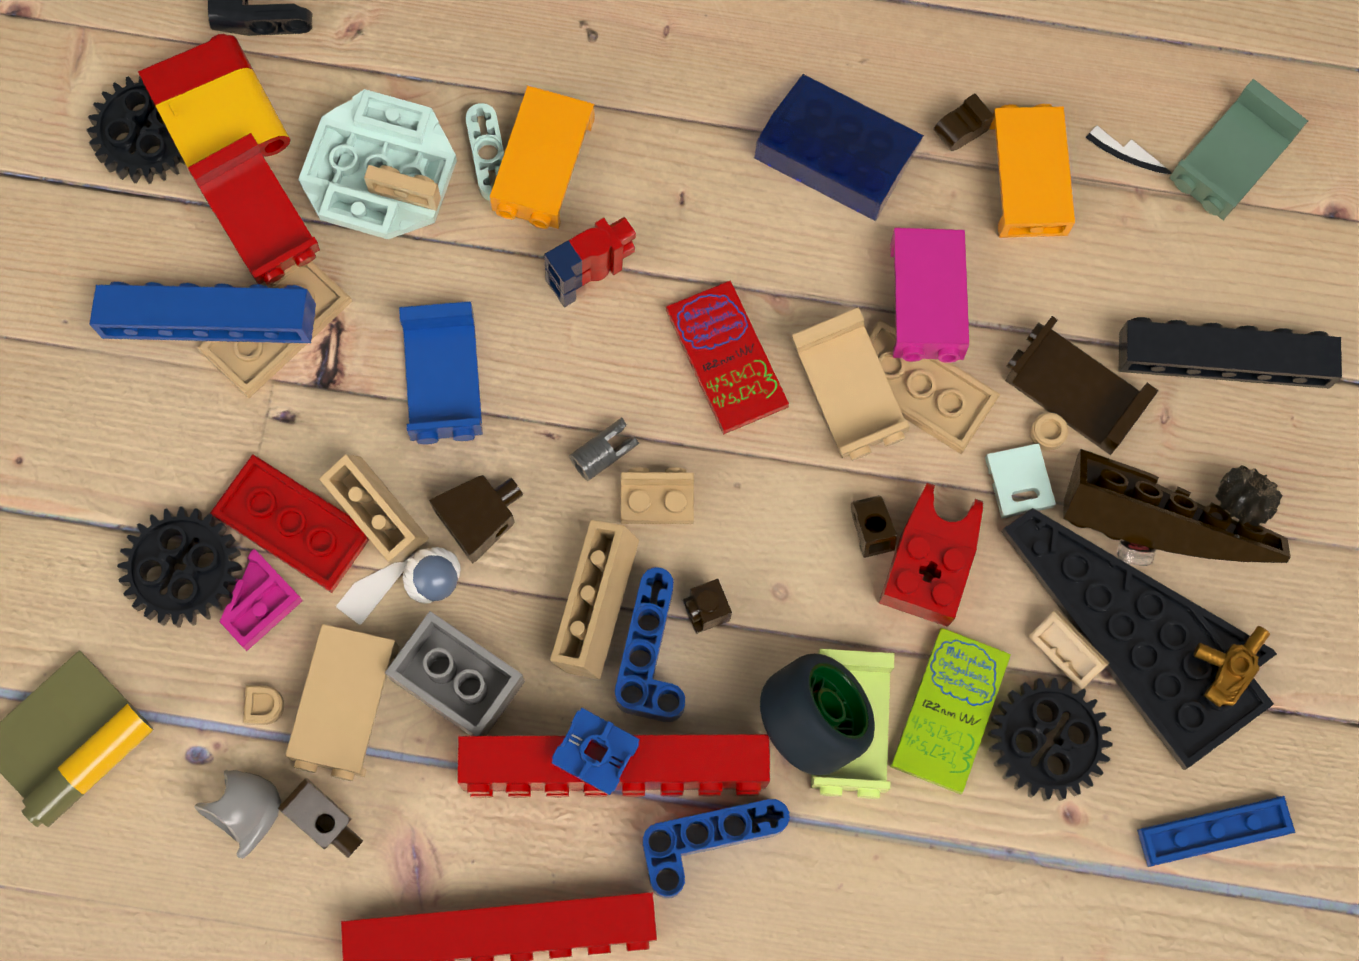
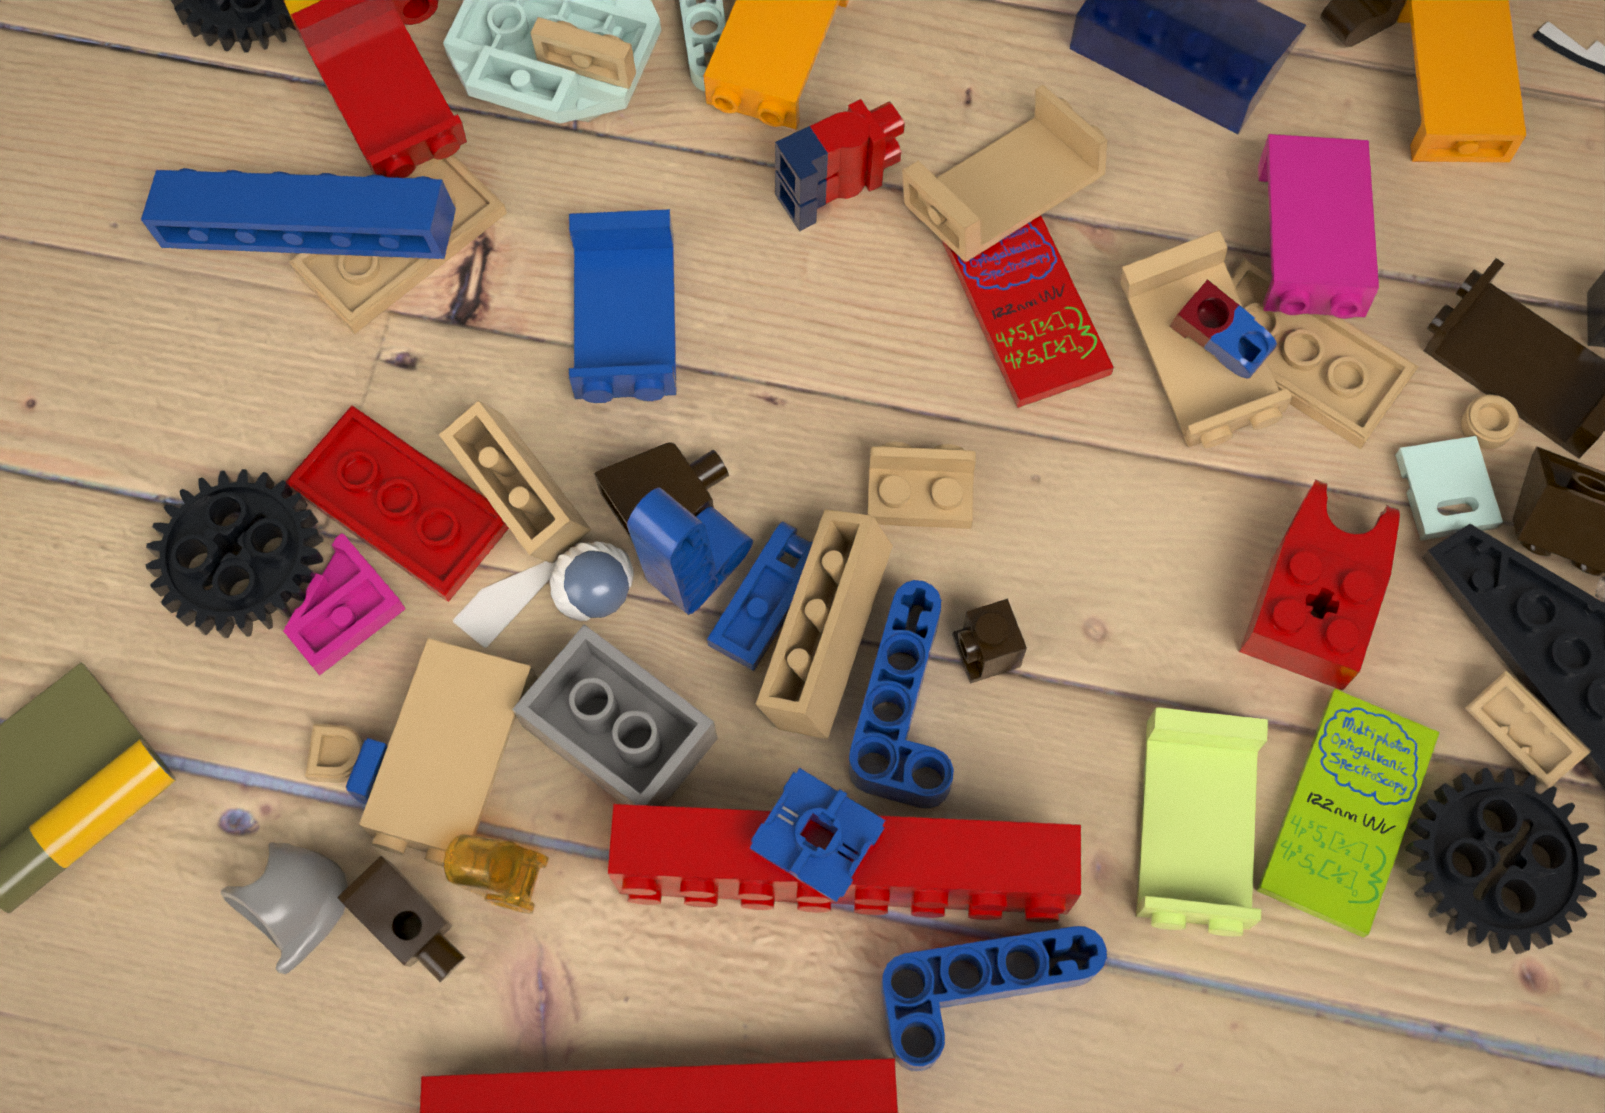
camera: 10 degrees right, 5 degrees down
(287, 717) = (366, 770): none -> blue tile
(379, 781) = (495, 870): none -> clear yellow piece
(498, 558) = (682, 552): none -> blue beam
(551, 583) = (761, 600): none -> blue plate
(598, 453) = (840, 423): dark grey hinge -> none
(712, 265) = (1009, 179): none -> tan panel
(817, 714) = (1153, 801): black wheel -> none
(864, 378) = (1225, 330): none -> leg
(873, 526) = (1235, 541): dark brown leg -> none

